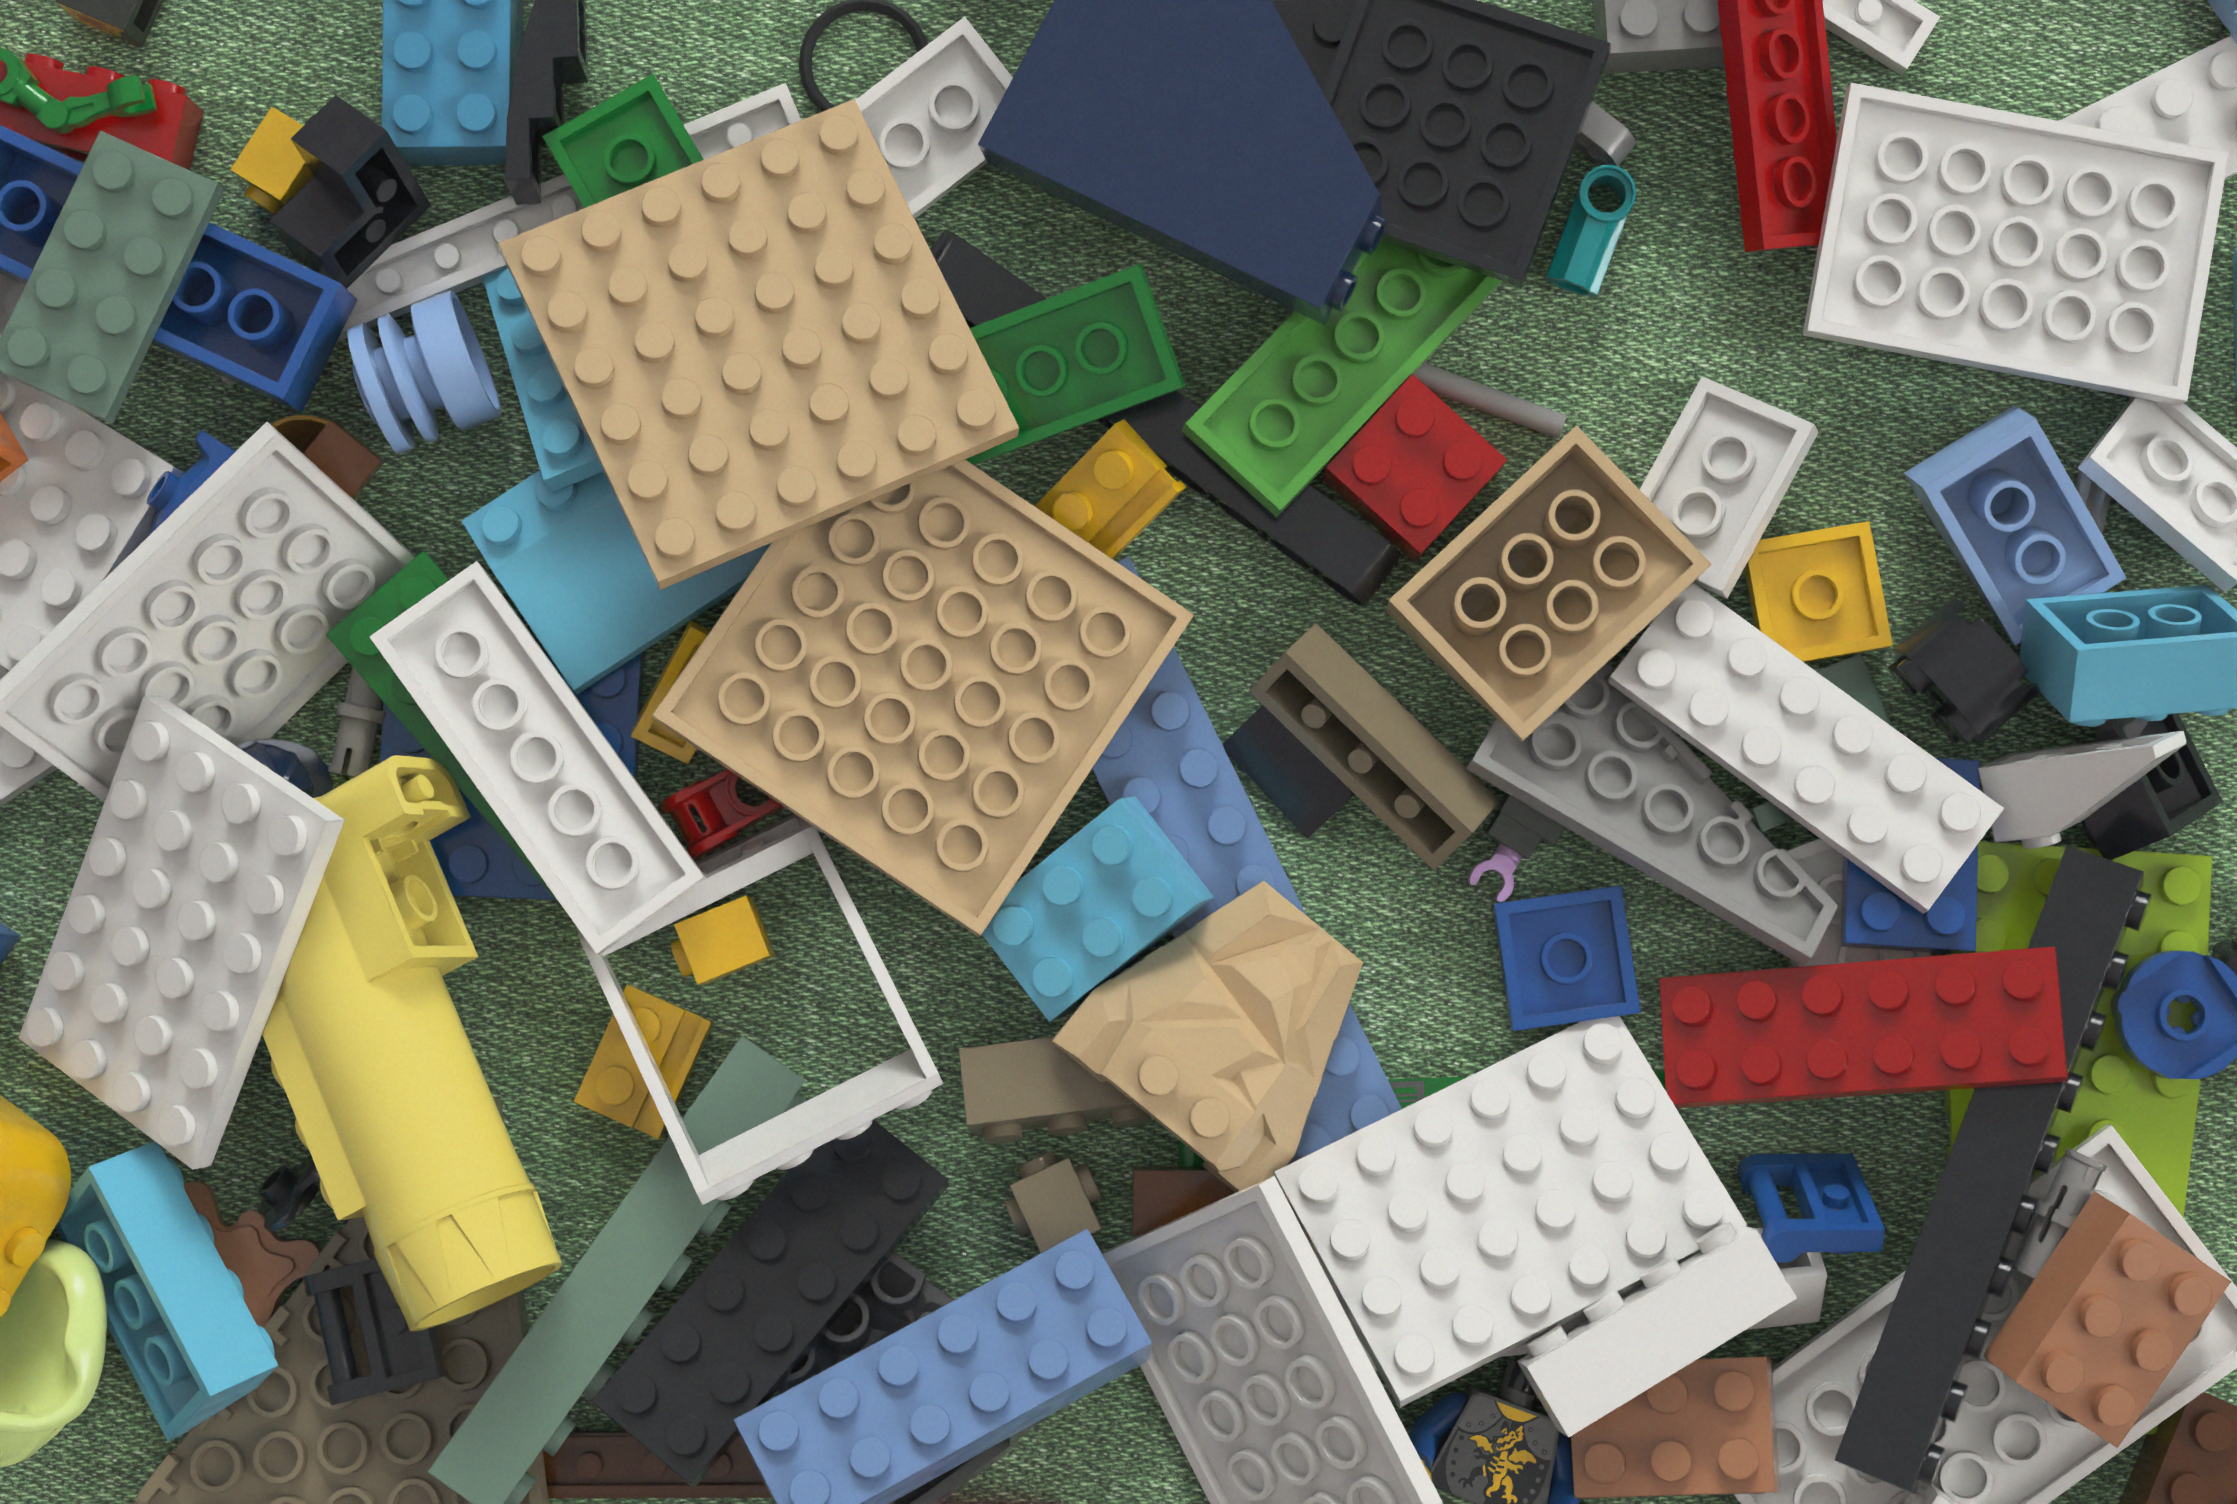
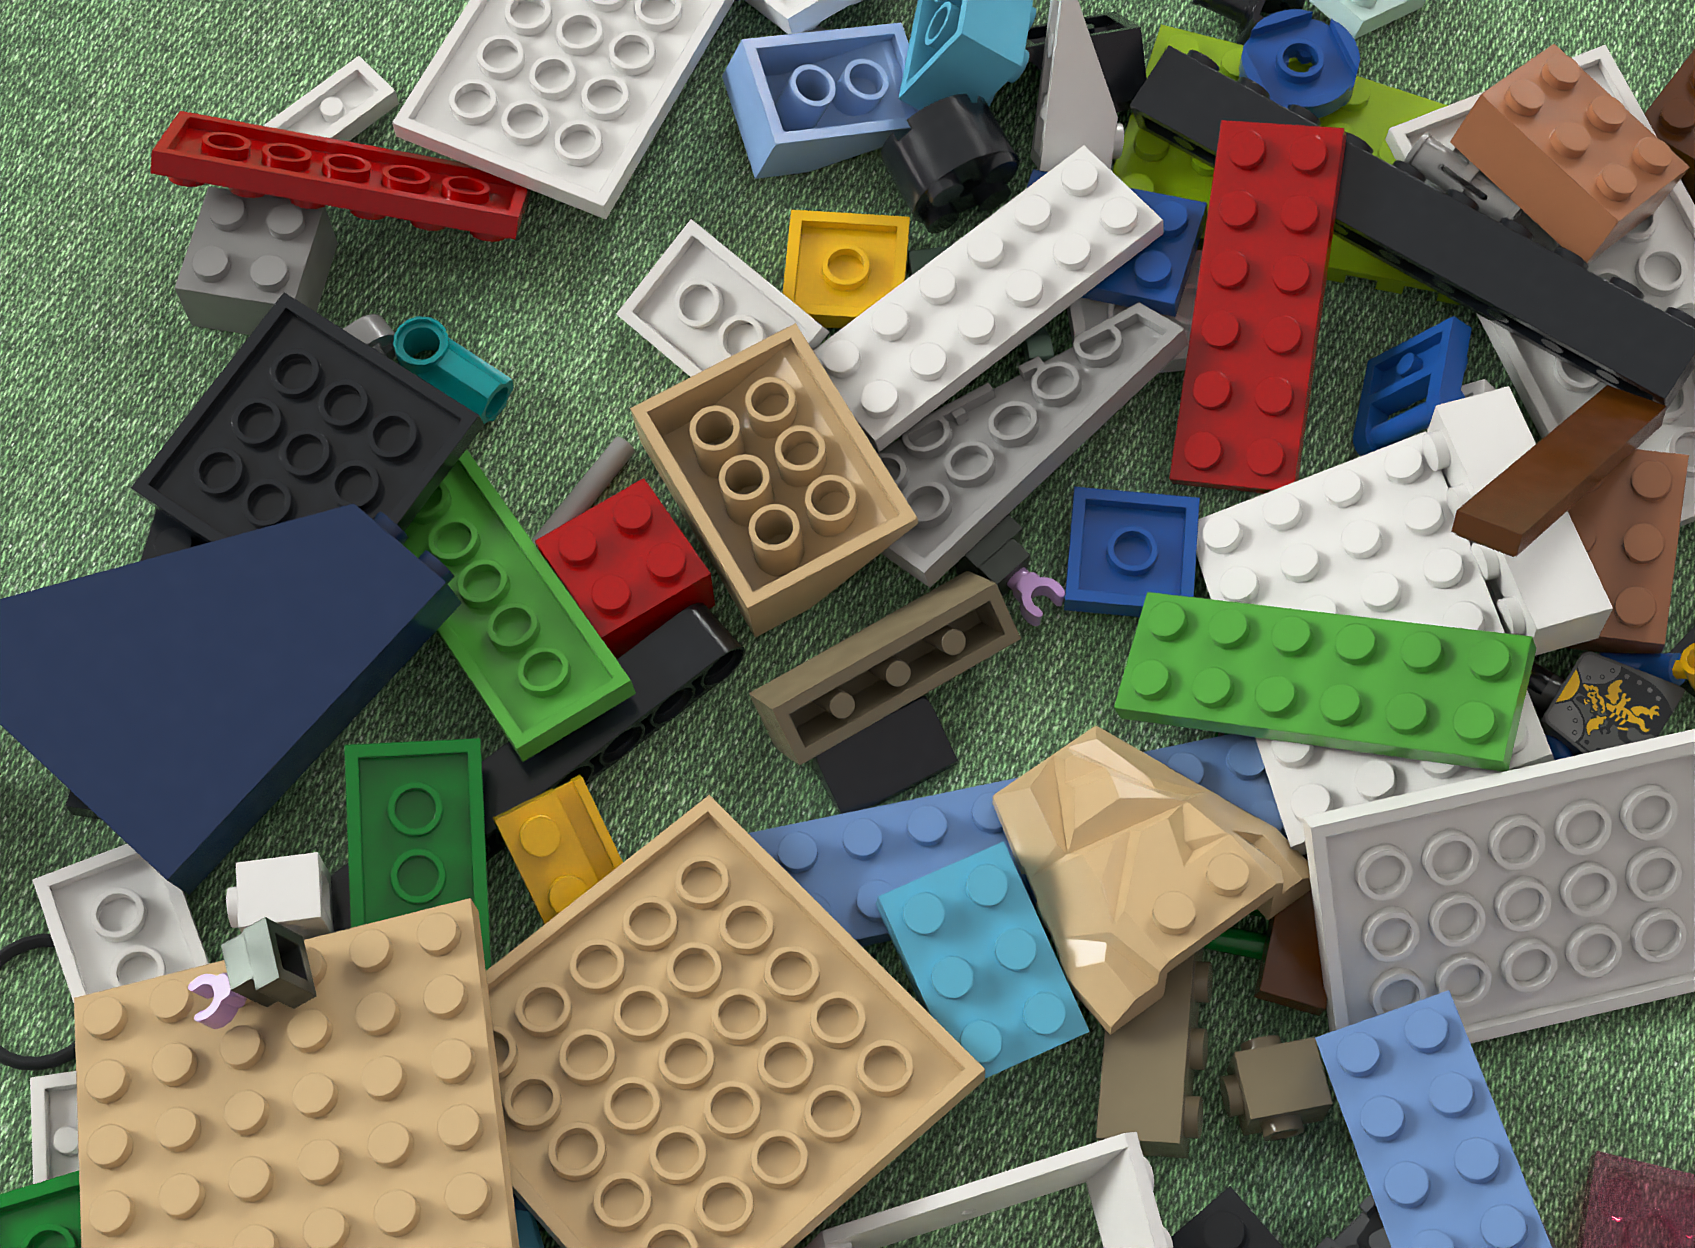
camera: 75 degrees left, 20 degrees down
(901, 261) = (261, 965): none -> pearl dark grey piece
(987, 254) = (285, 890): none -> white brick
(1444, 1173) = (1328, 680): none -> bright green plate
(1697, 1363) = (1558, 471): none -> reddish brown tile

